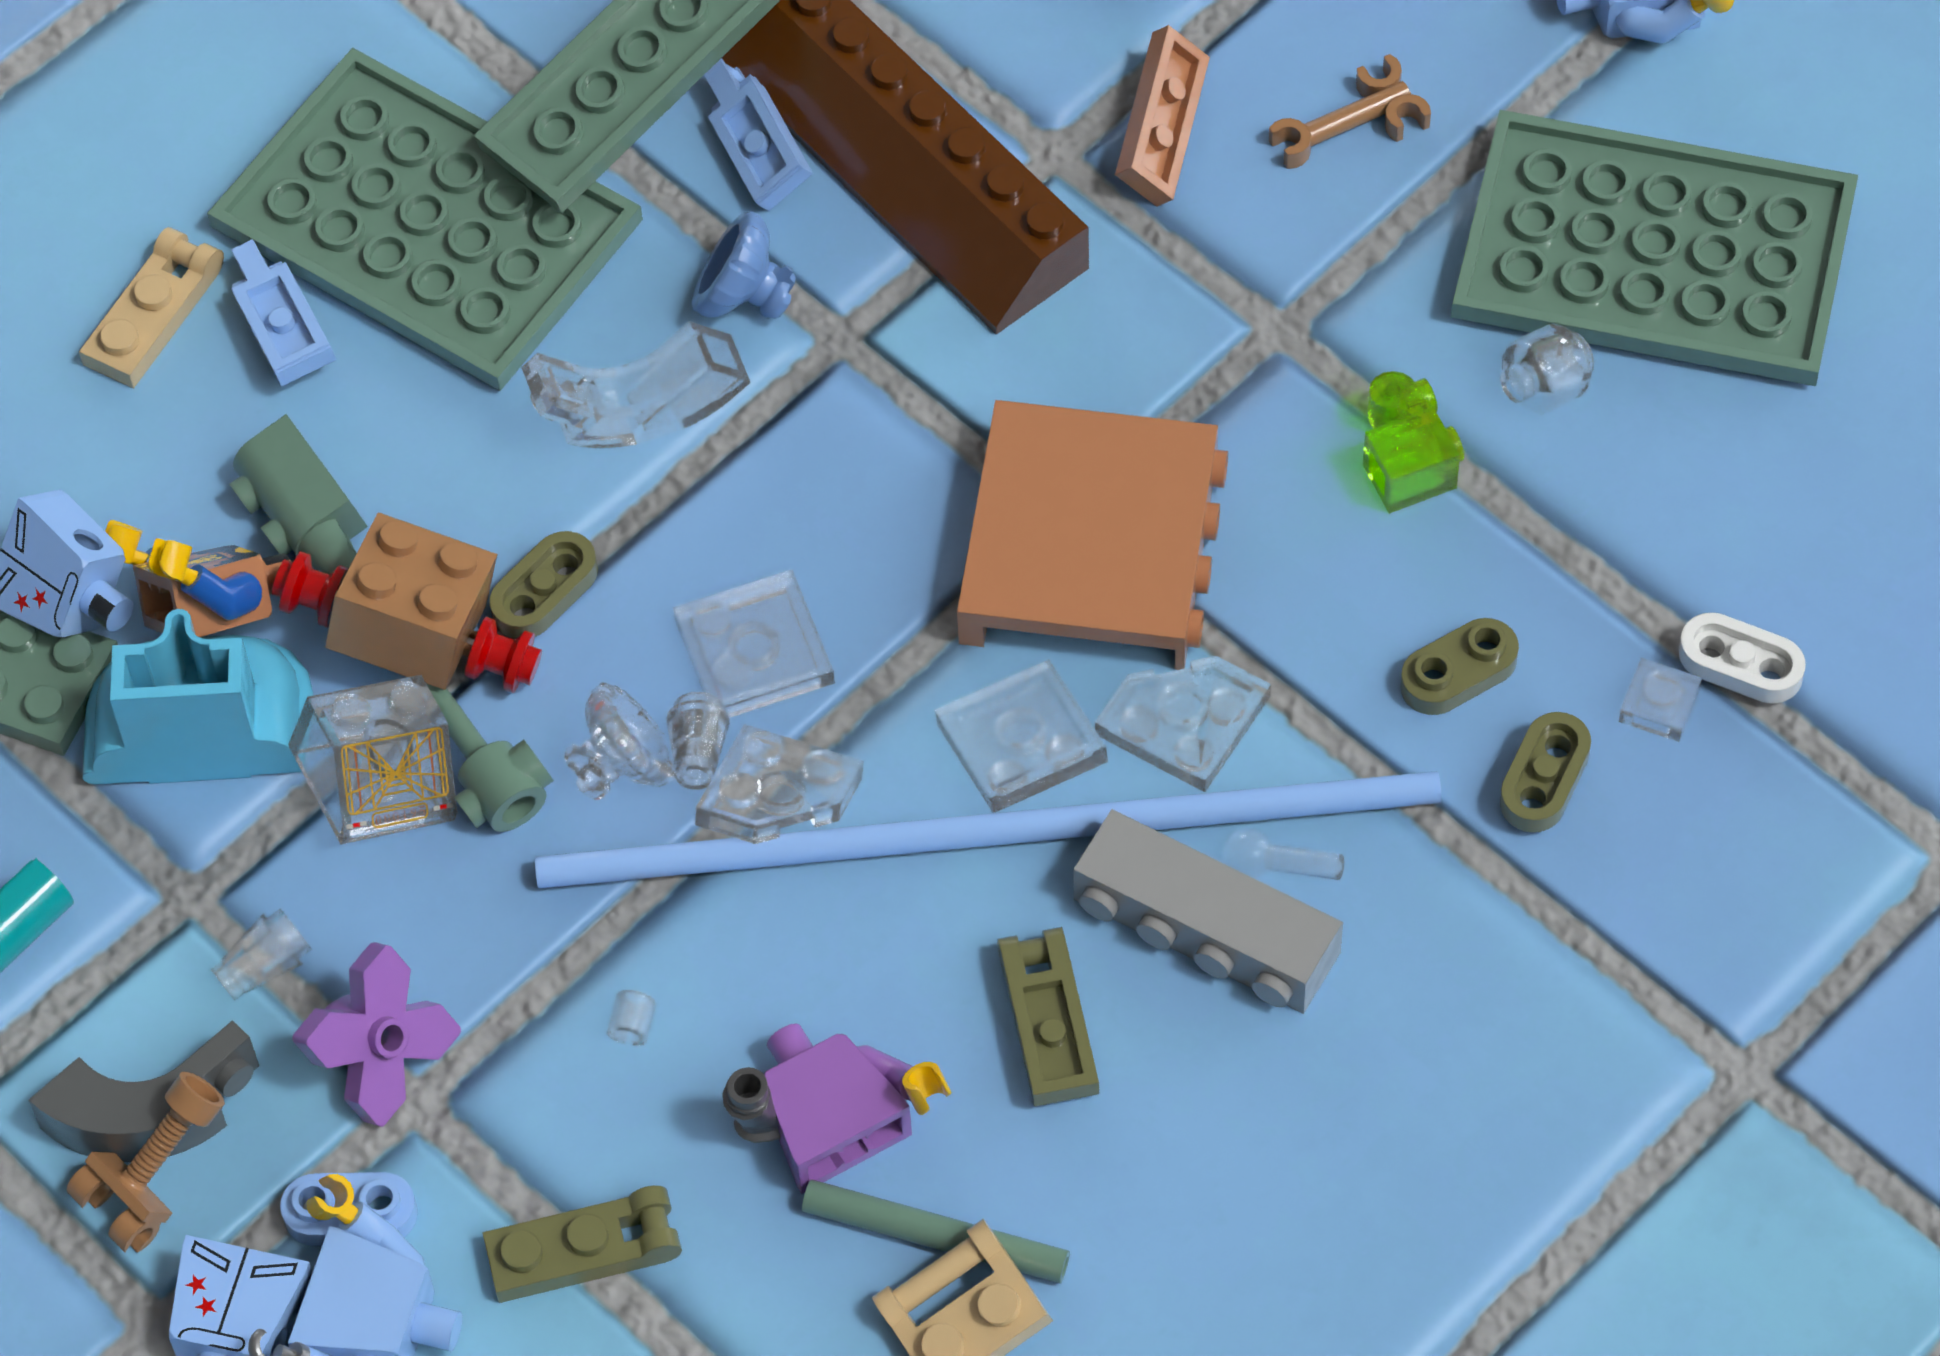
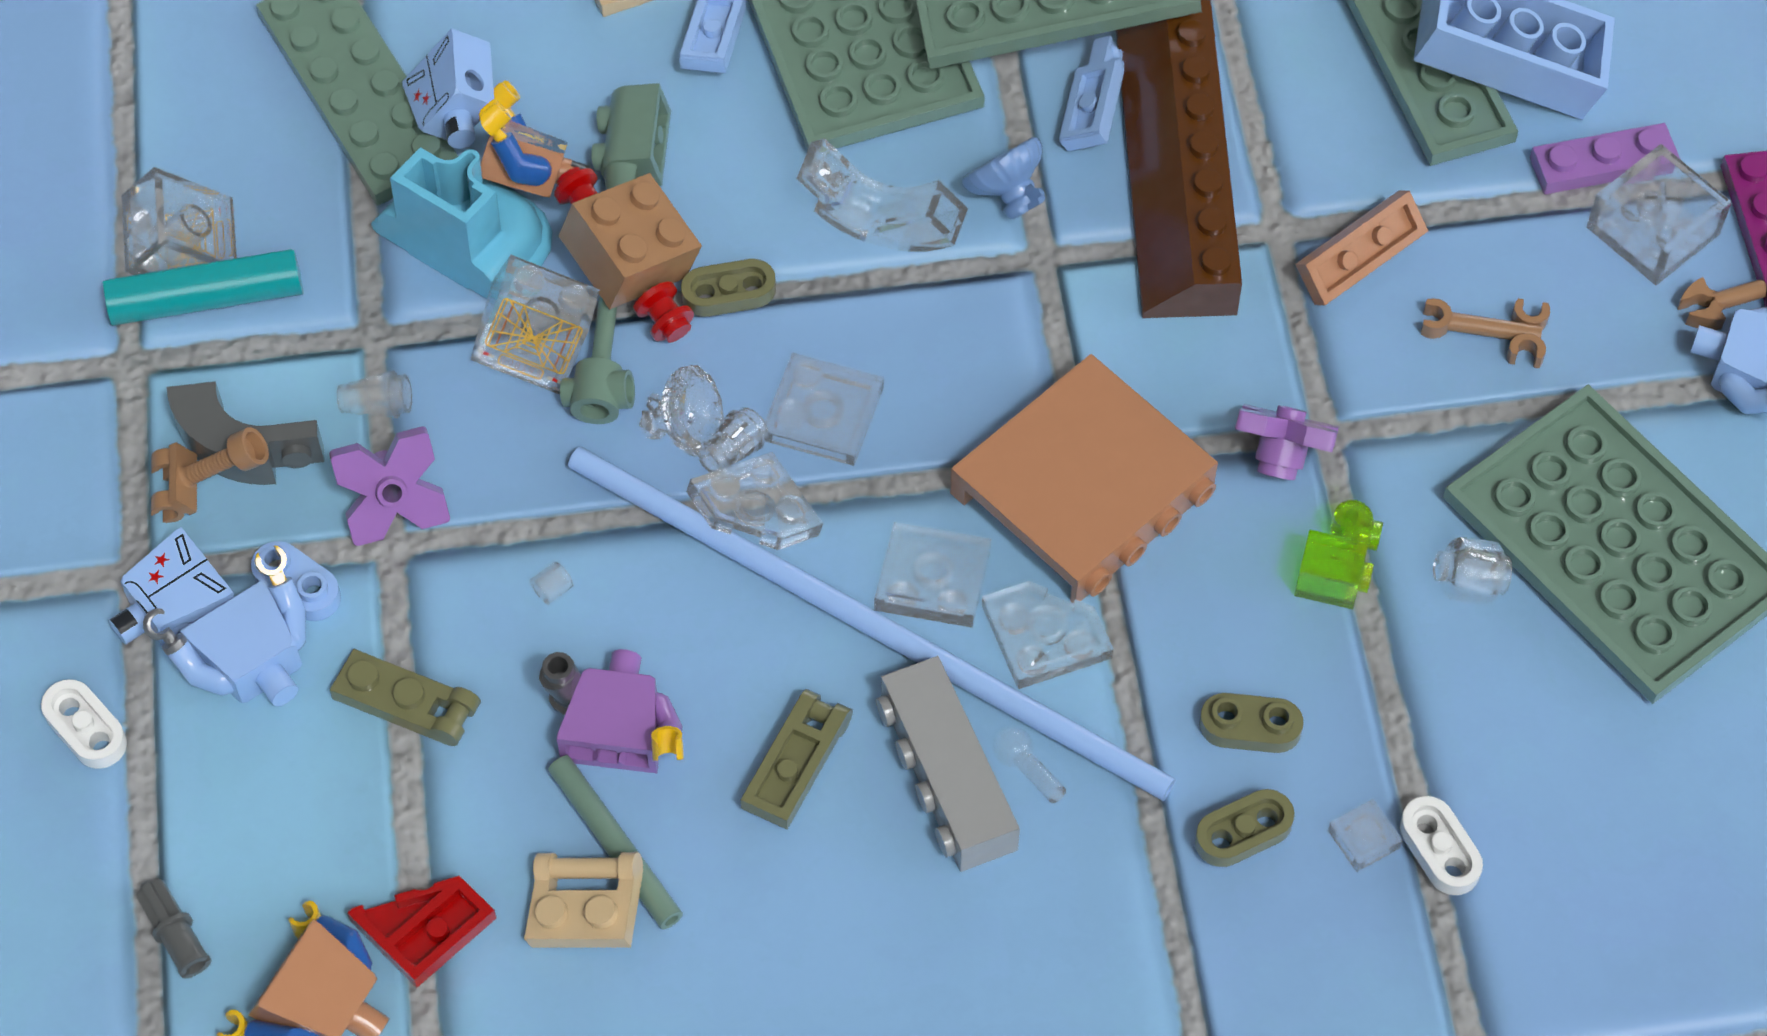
camera: 35 degrees right, 0 degrees up
(1258, 356) = (1284, 438): none -> medium lavender plant

